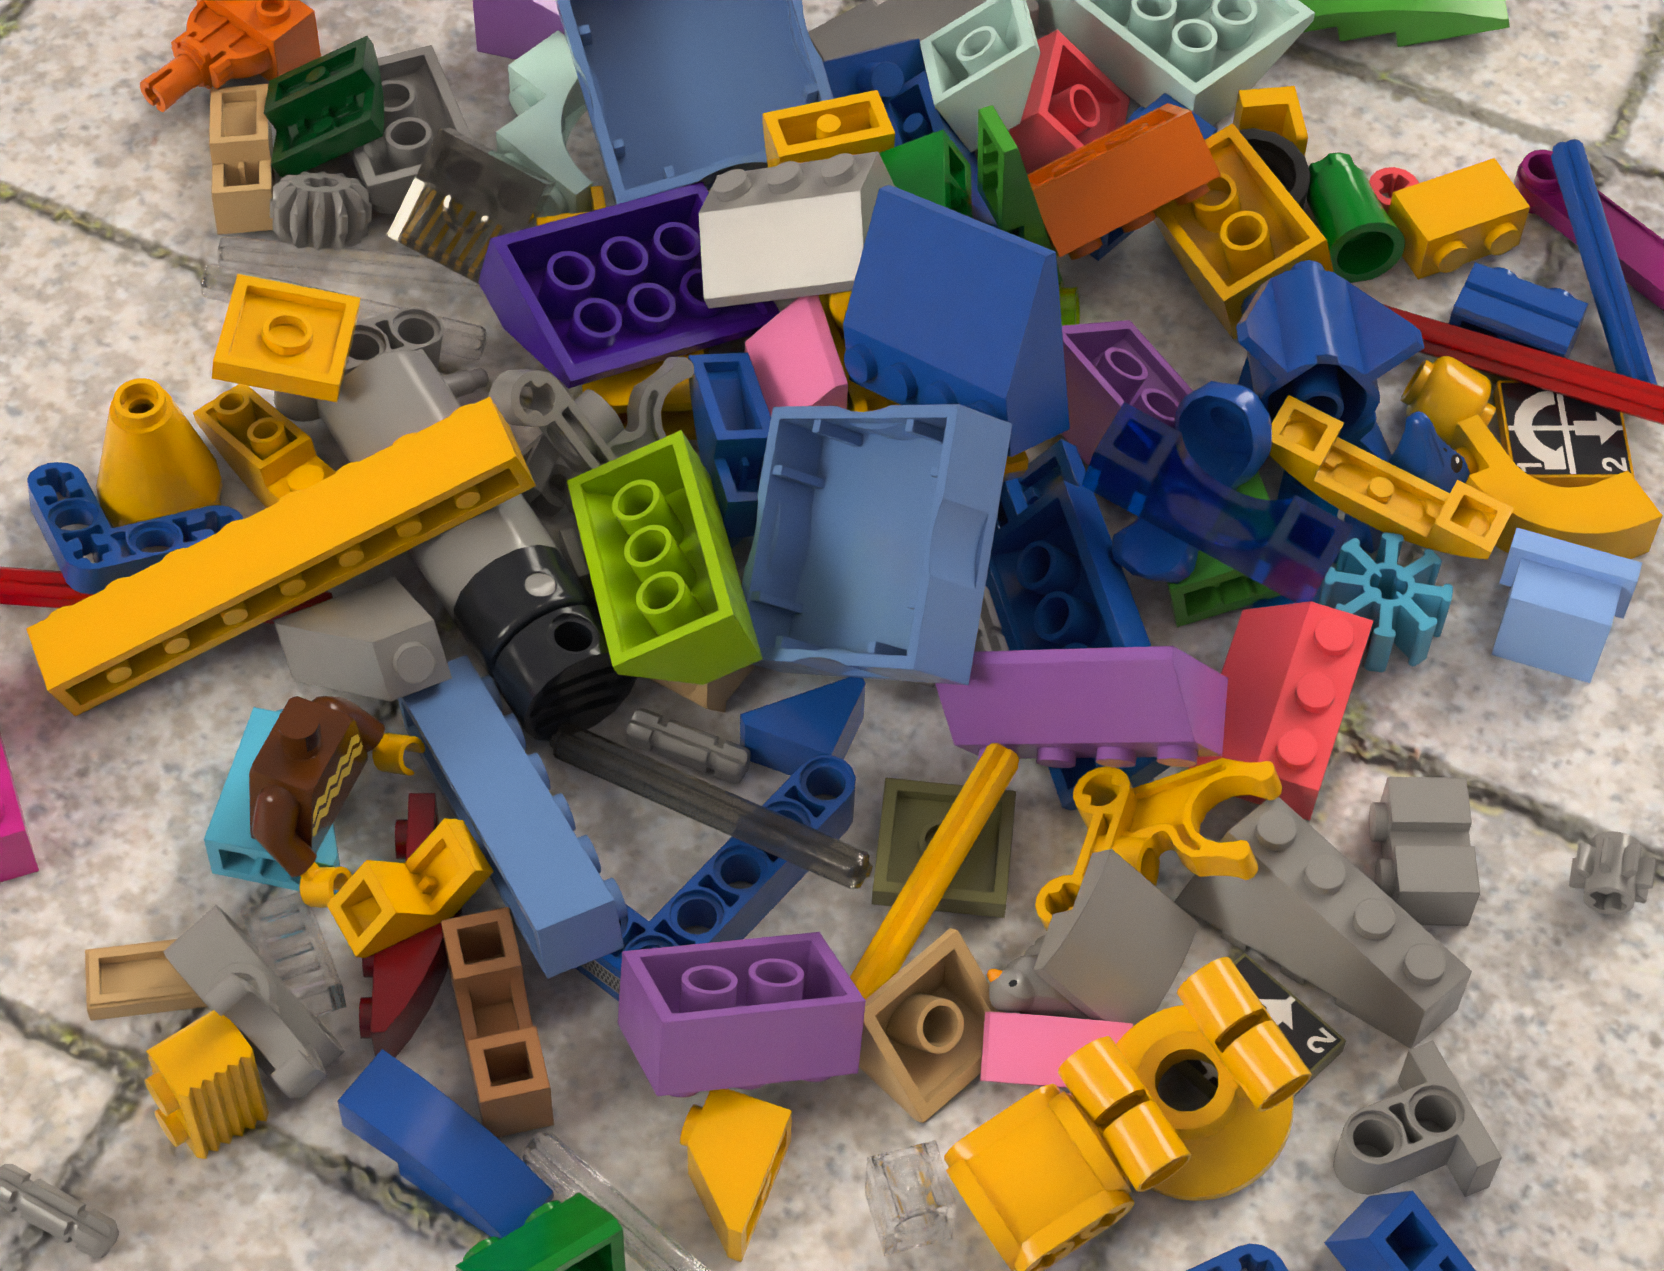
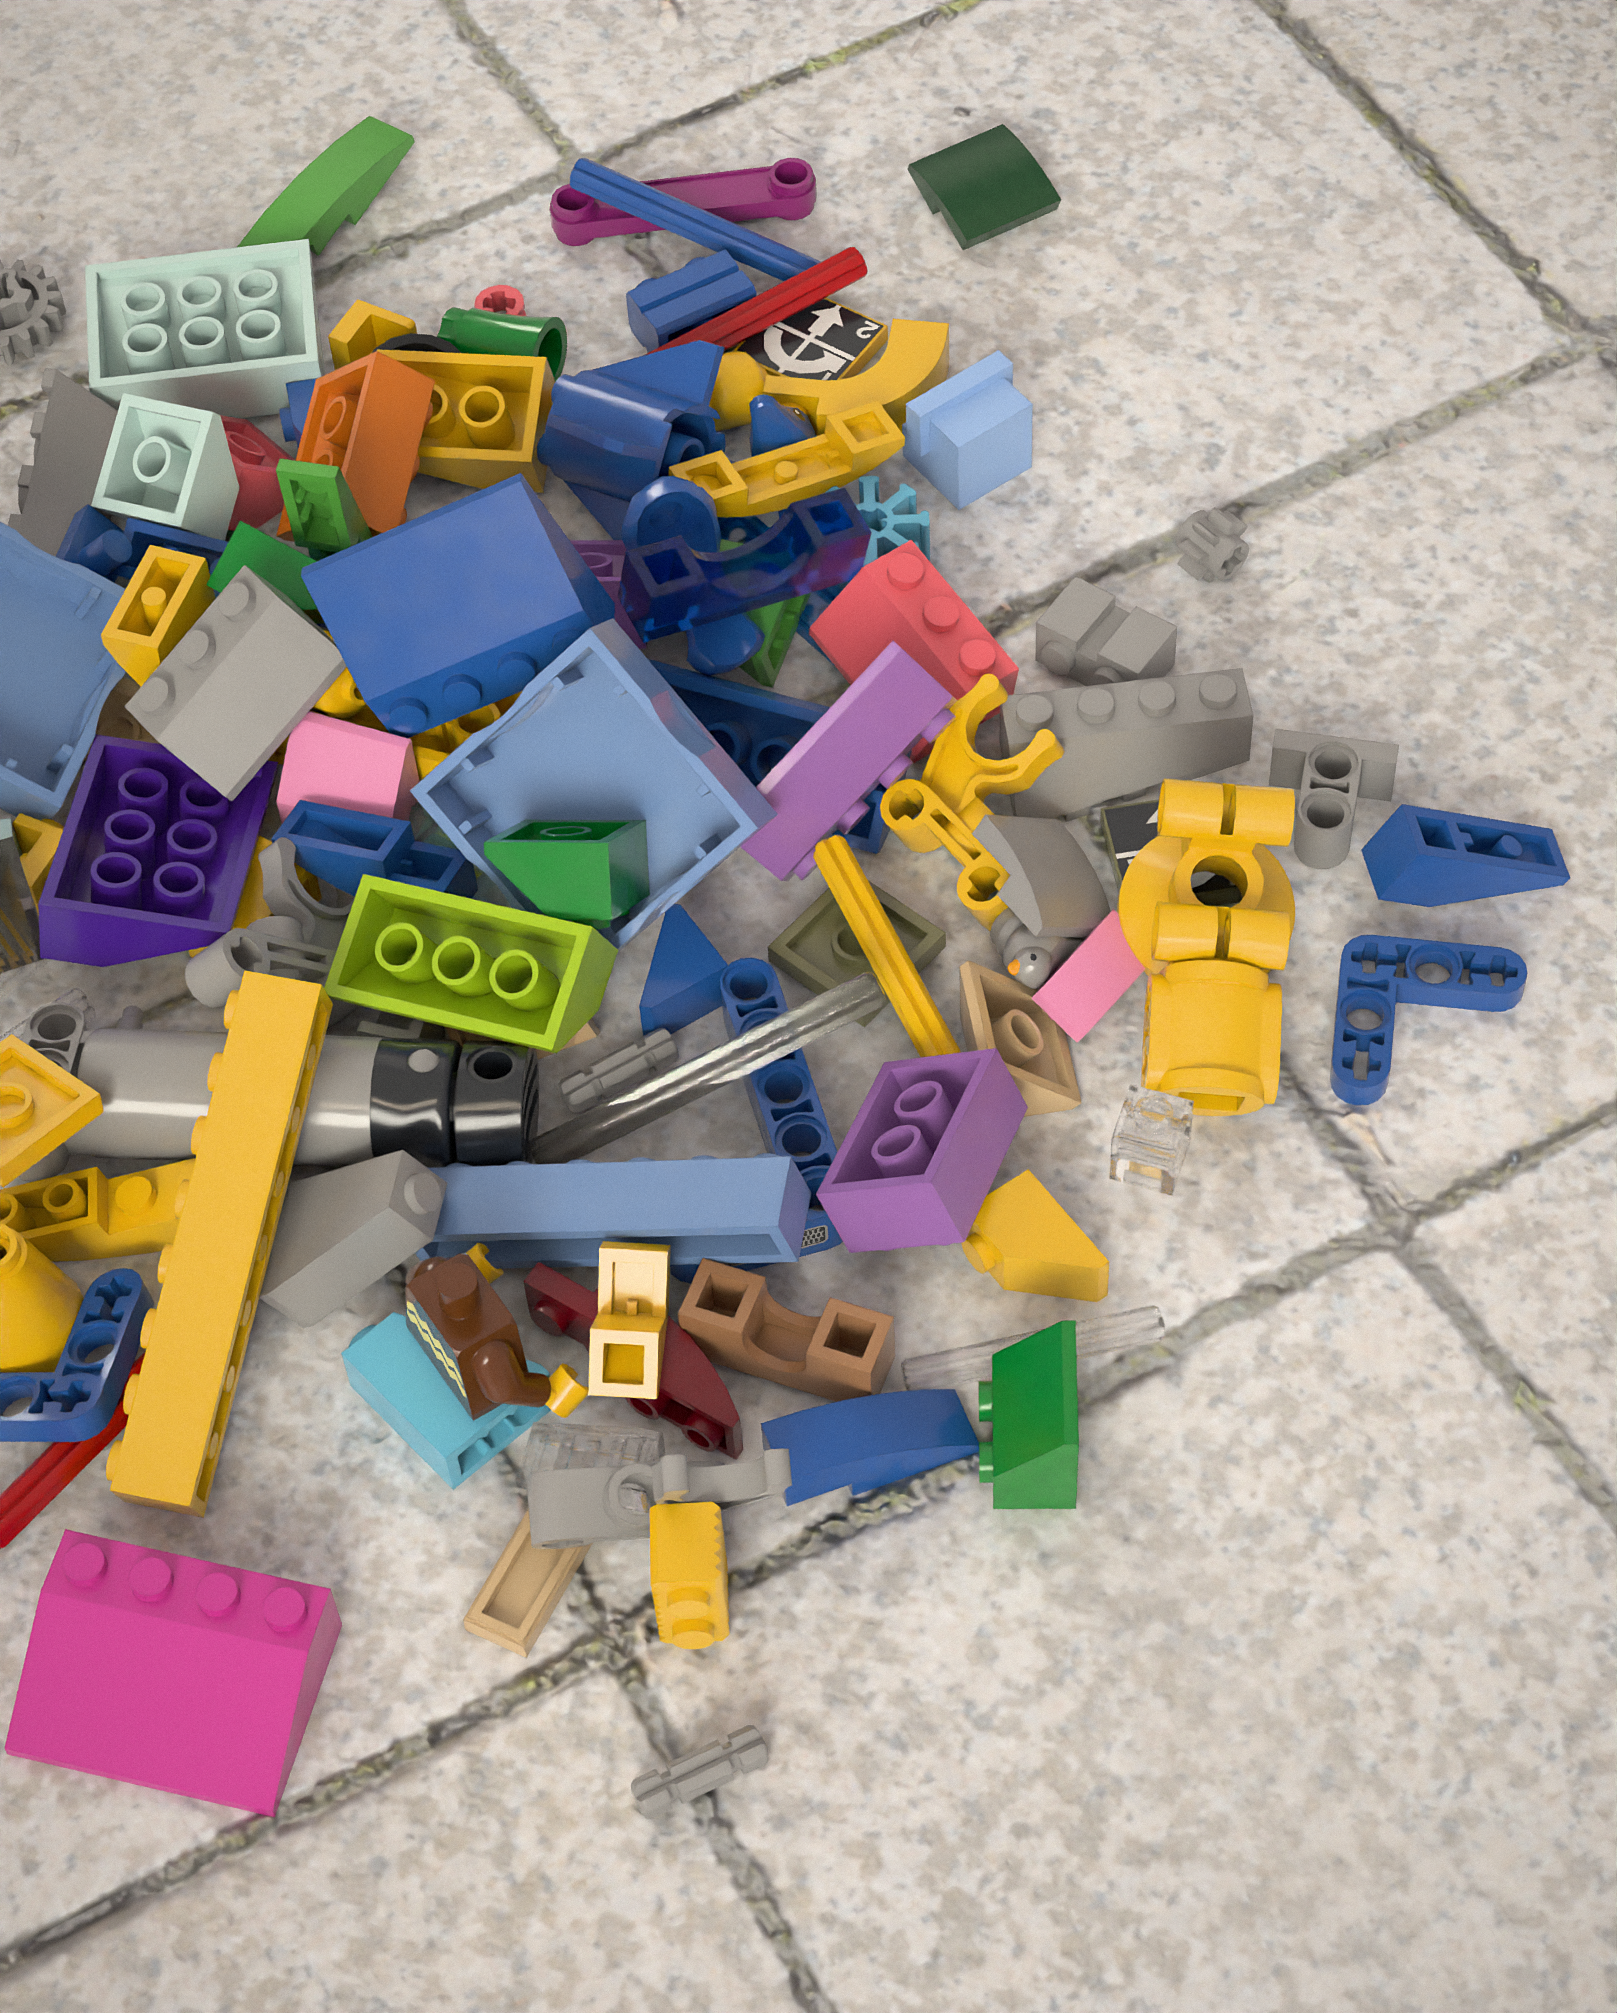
camera: 50 degrees left, 0 degrees up
(802, 571) = (576, 866): none -> green slope
(1458, 218) = (568, 278): yellow brick -> none

